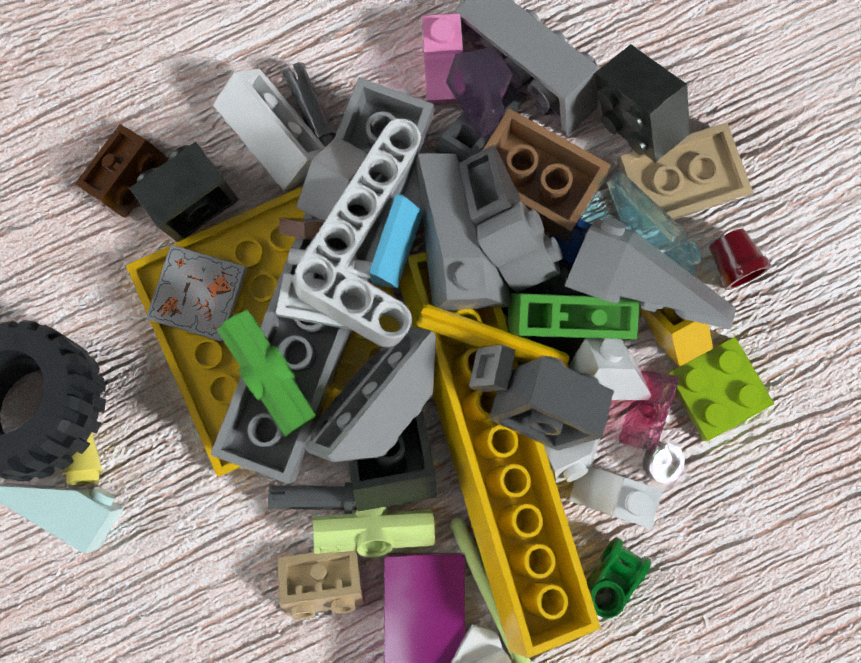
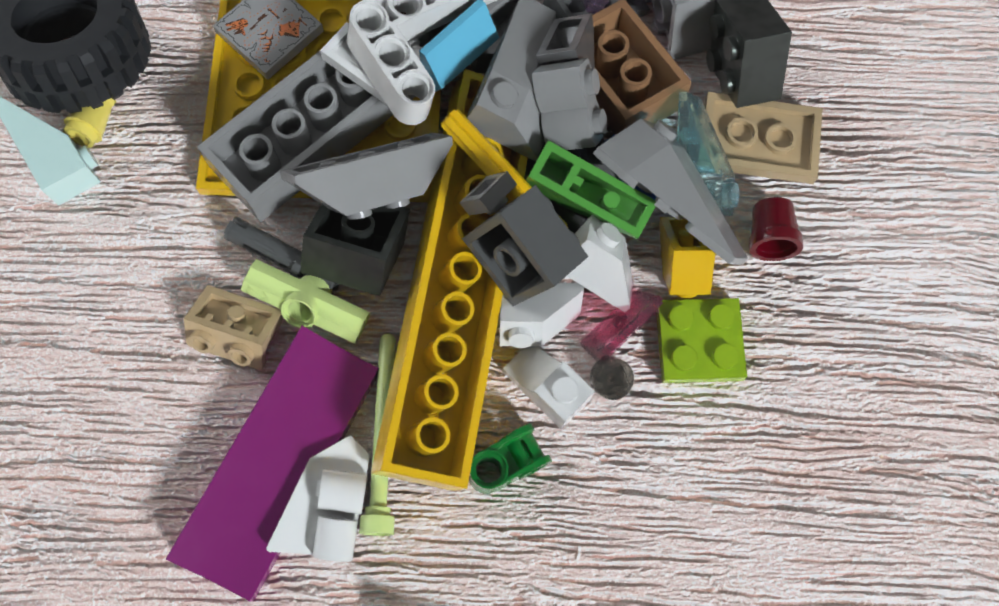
camera: 25 degrees right, 10 degrees down
(266, 372) = (284, 97): bright green piece -> none

